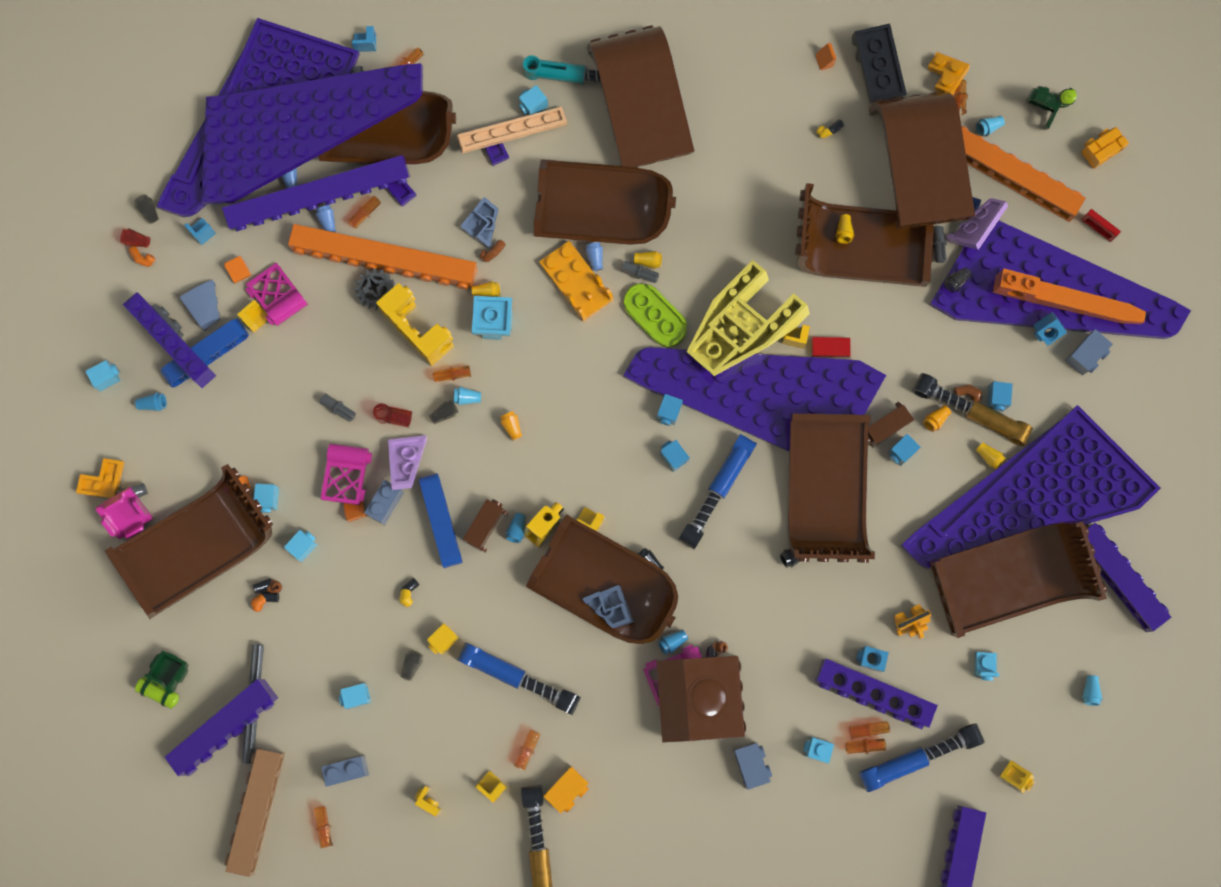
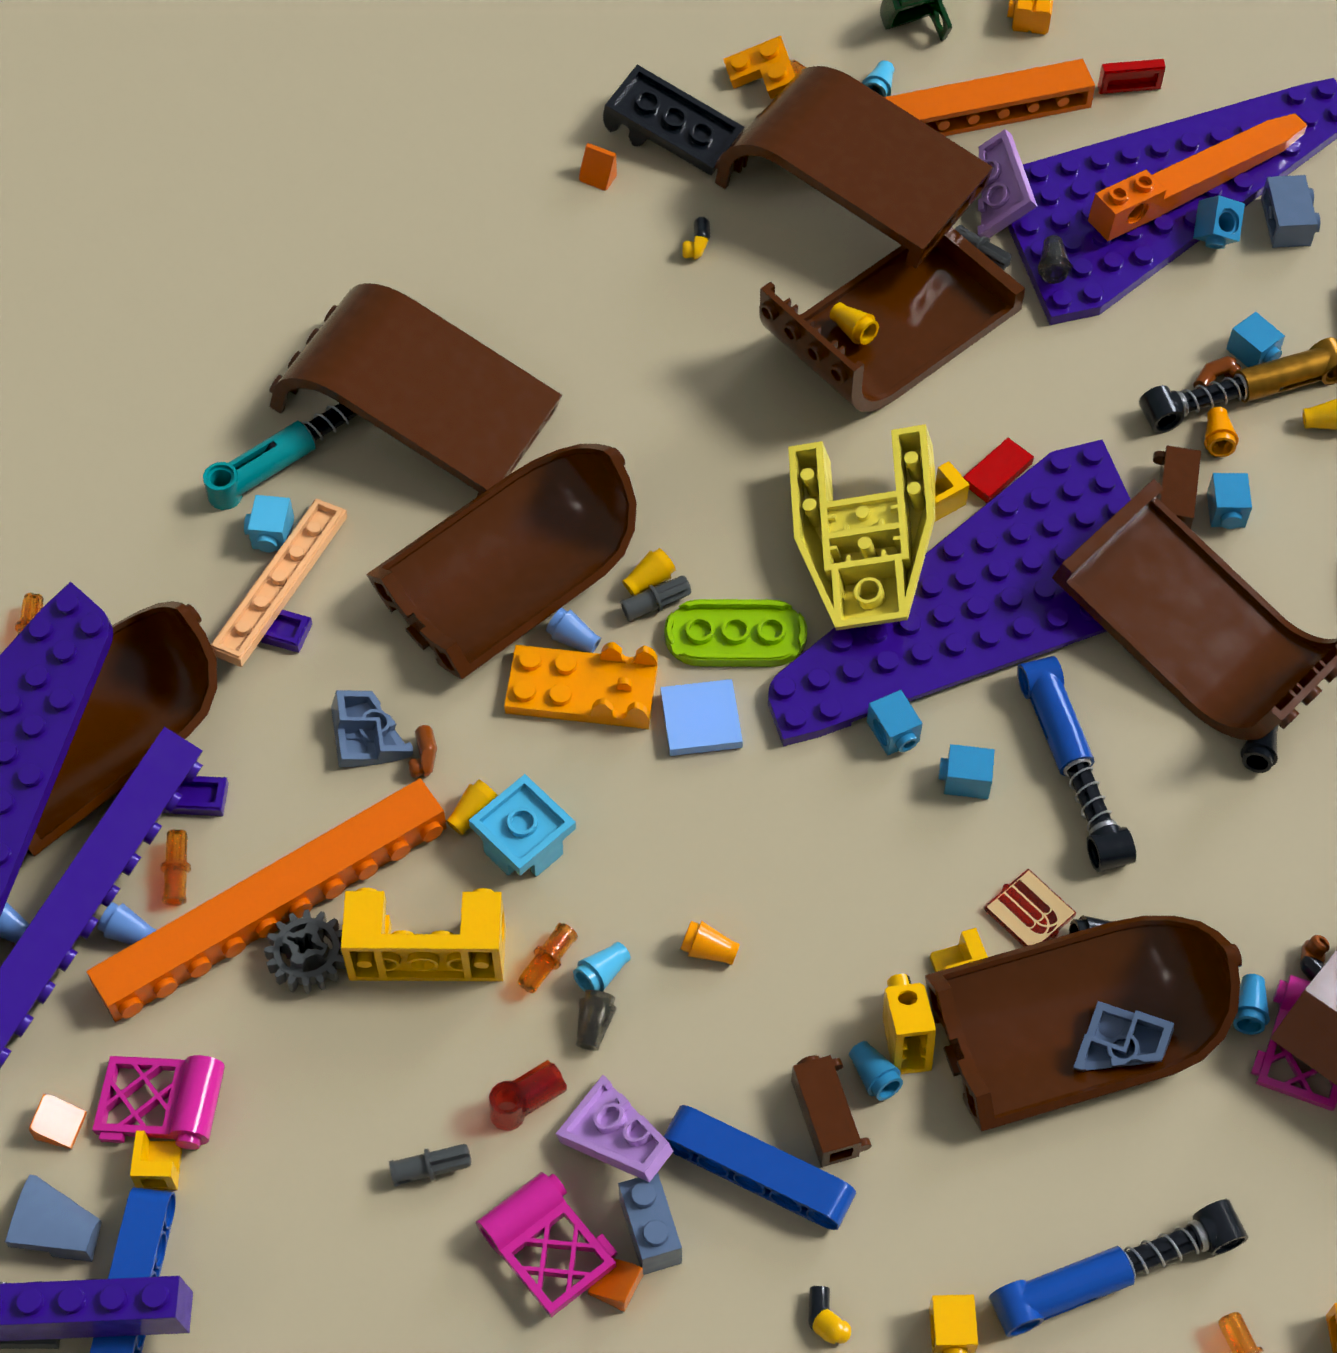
camera: 45 degrees left, 20 degrees down
(605, 336) = (701, 717): none -> light blue tile
(638, 528) = (1029, 910): none -> piece

